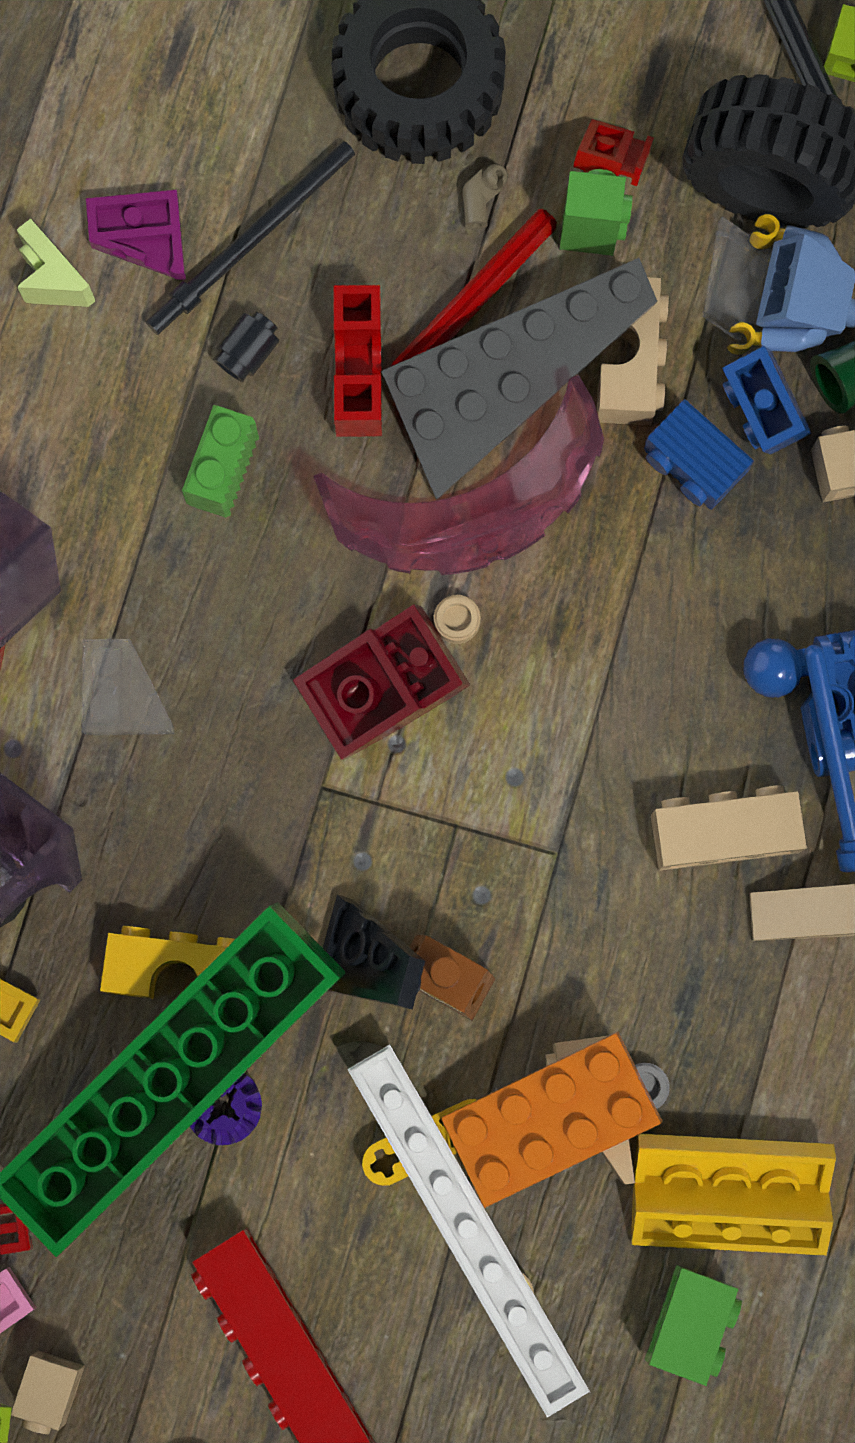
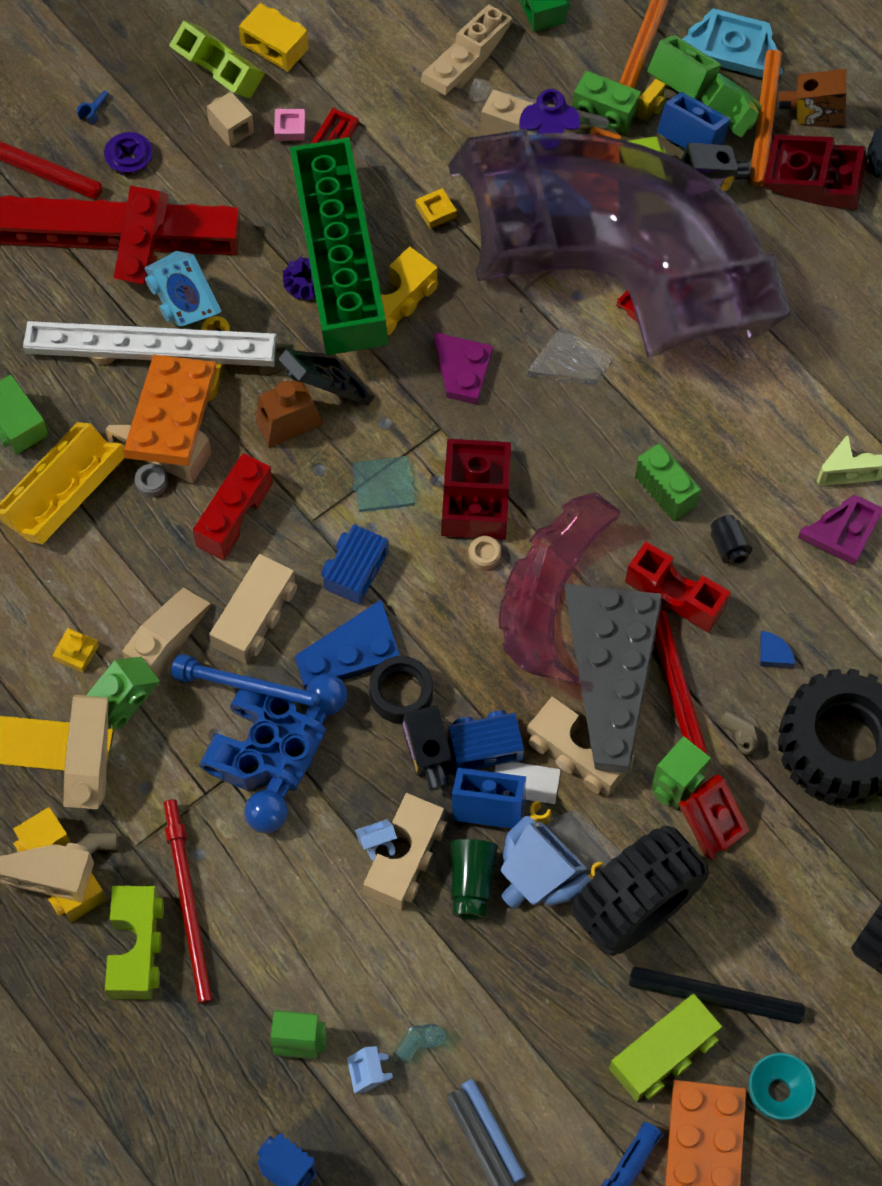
camera: 125 degrees right, 15 degrees down
(186, 295) = (785, 531): black bar -> none
(219, 816) = (462, 366): none -> magenta wing
(330, 1355) = (142, 218): none -> red arch
(354, 219) = (775, 651): none -> blue tile
(374, 1238) = (181, 289): none -> medium azure slope
(448, 802) = (383, 484): none -> clear light blue piece
(585, 753) = (355, 564): none -> blue brick
(617, 950) = (221, 521): none -> red arch
(687, 684) = (351, 648): none -> blue wing
(700, 383) = (540, 780): none -> white sticker
(711, 557) = (396, 665): none -> black tyre
(752, 510) = (425, 732): none -> black torso

